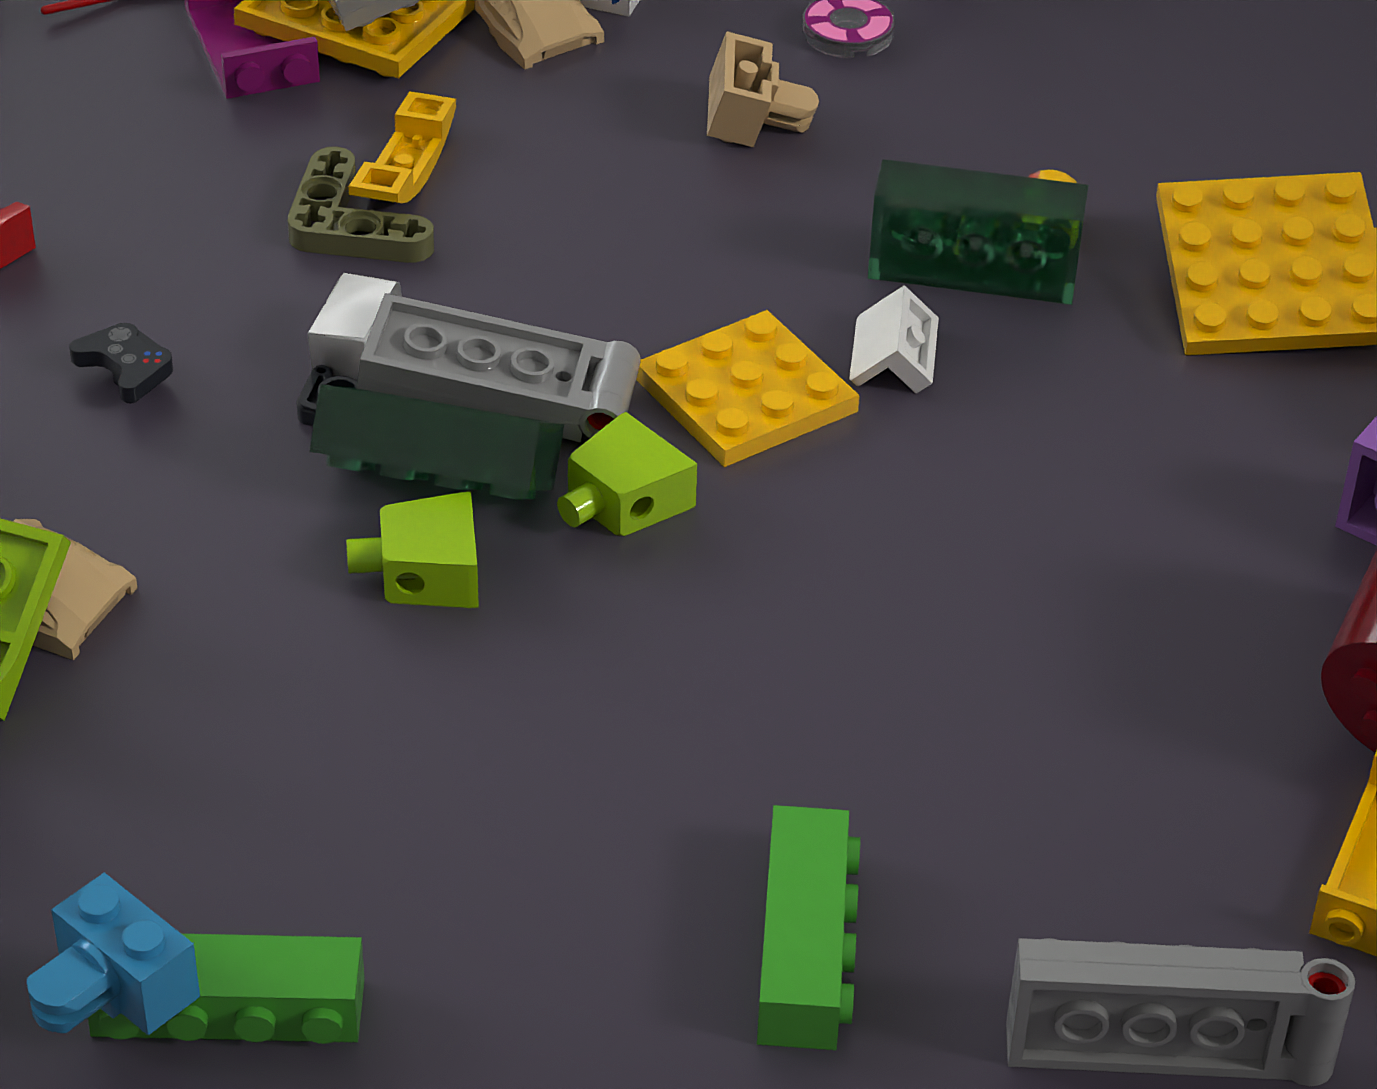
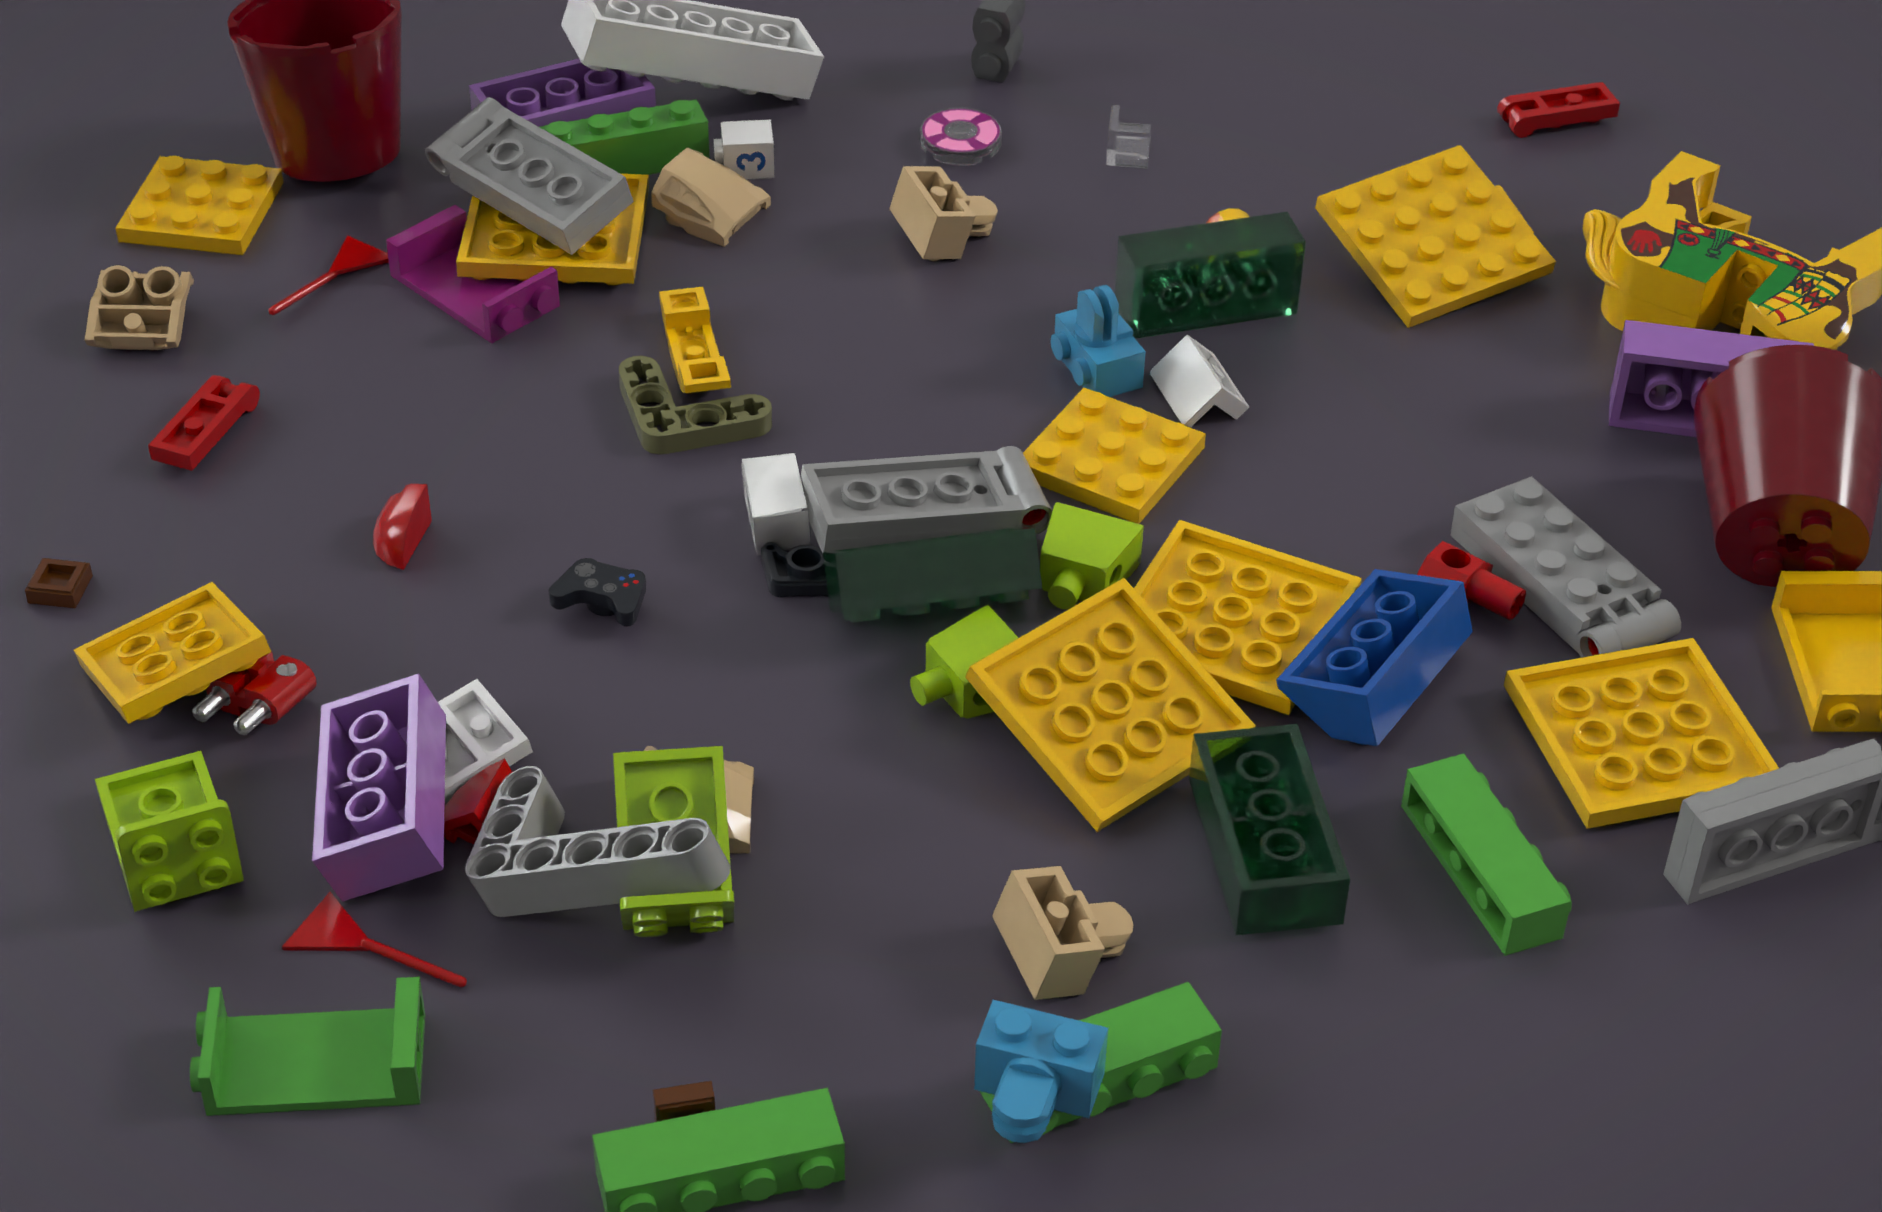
camera: 25 degrees left, 0 degrees up
(284, 842) = (1057, 932): none -> tan brick
(518, 631) = (1106, 702): none -> yellow plate
(578, 816) = (1268, 830): none -> clear green brick
(736, 590) = (1241, 607): none -> yellow plate
(808, 273) = (1099, 344): none -> dark azure brick
(850, 679) = (1378, 654): none -> blue slope
(1016, 77) = (1127, 142): none -> clear panel
(1016, 627) = (1480, 584): none -> red piece
(1089, 853) = (1637, 729): none -> yellow plate
(1141, 664) = (1566, 568): none -> light grey hinge

